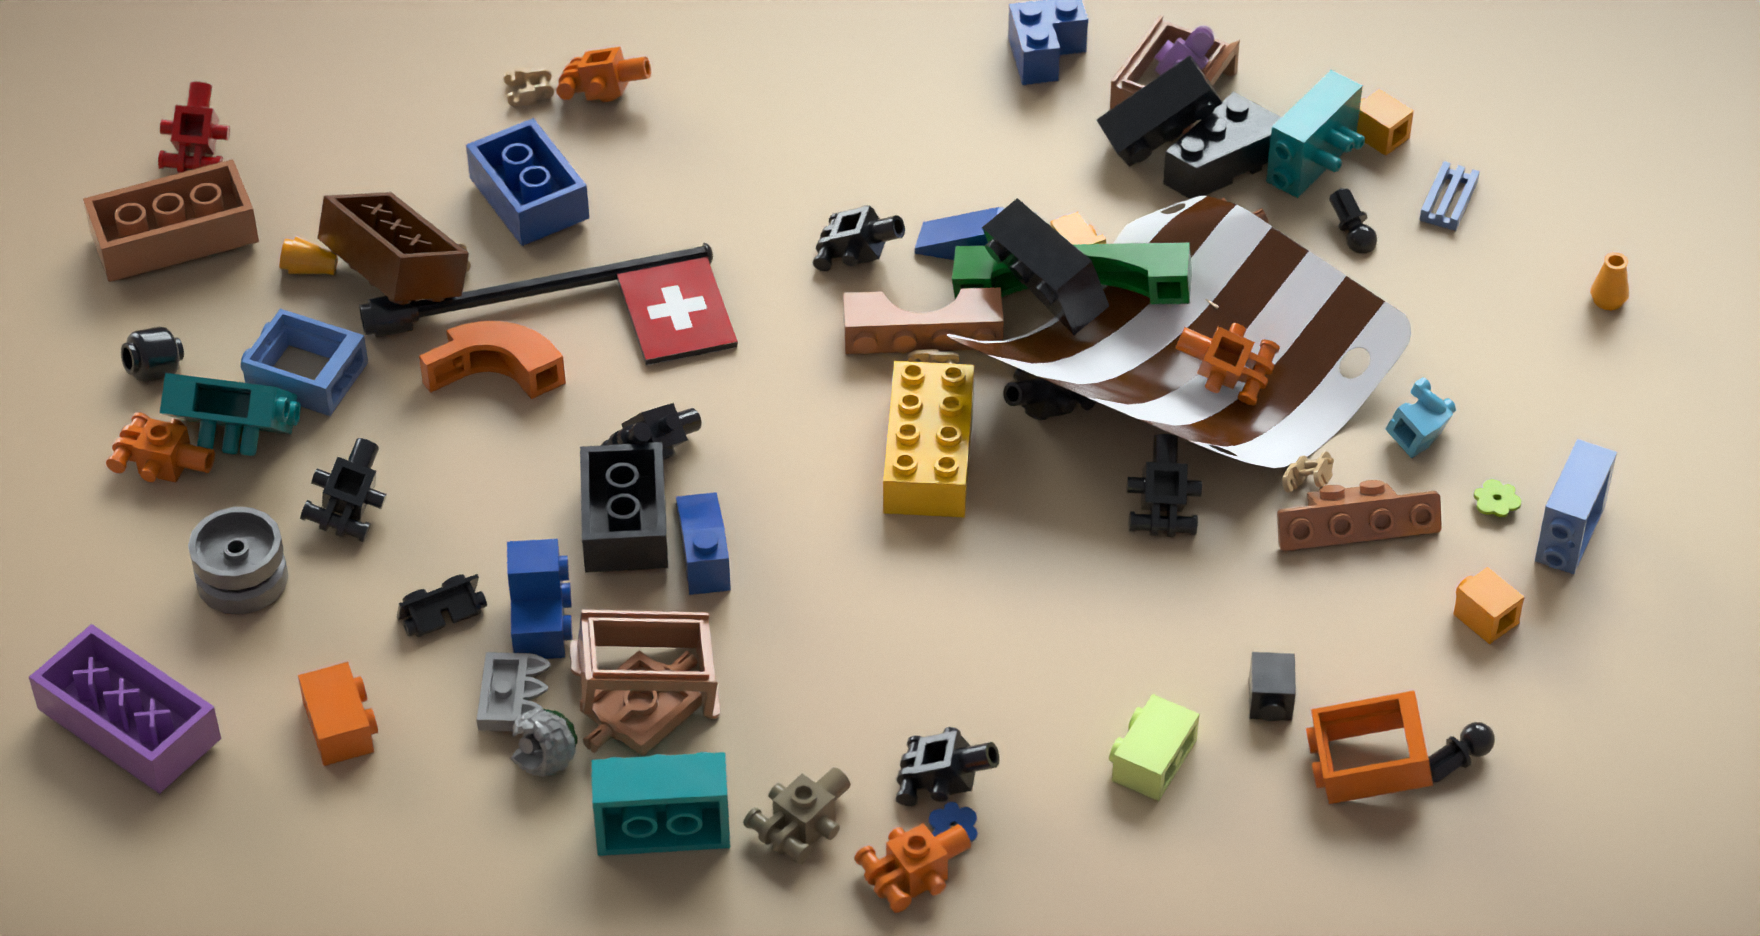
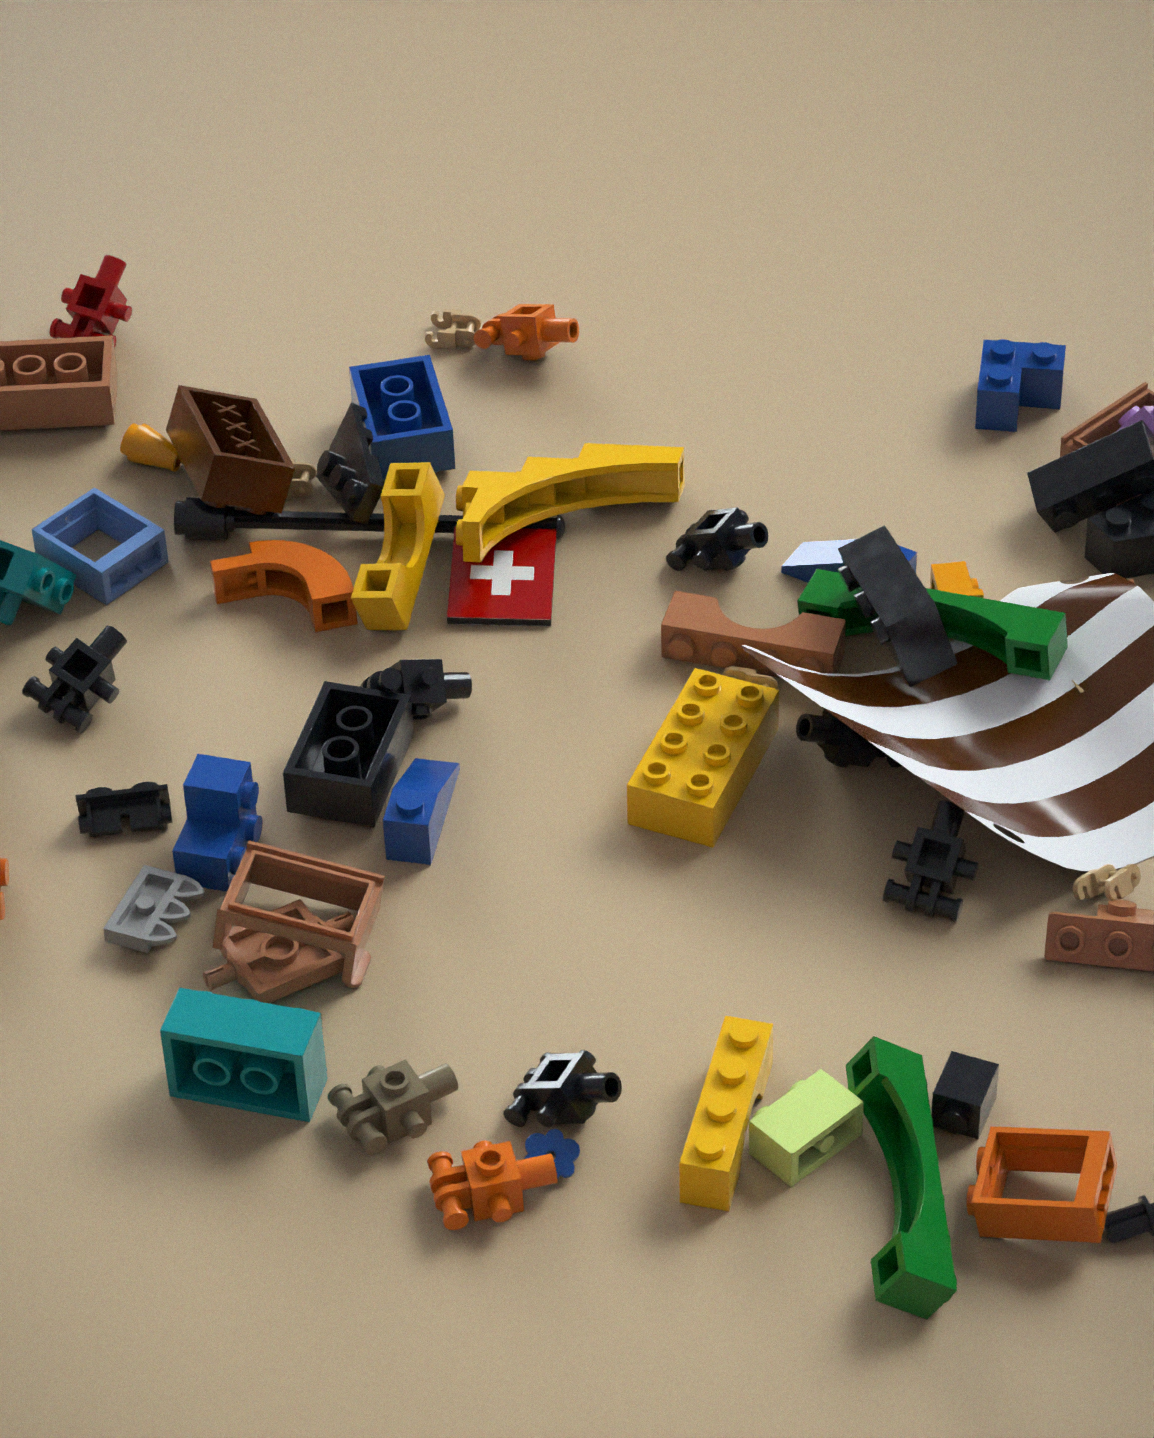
camera: 20 degrees right, 5 degrees down
(507, 242) = (350, 469): none -> black wing
(546, 742) = (161, 967): light grey piece -> none
(588, 331) = (411, 509): none -> yellow arch
(729, 199) = (546, 487): none -> yellow arch
(1088, 751) = (719, 1126): none -> yellow arch
(1226, 357) = (1063, 743): orange piece -> none
(1295, 838) = (917, 1264): none -> green arch

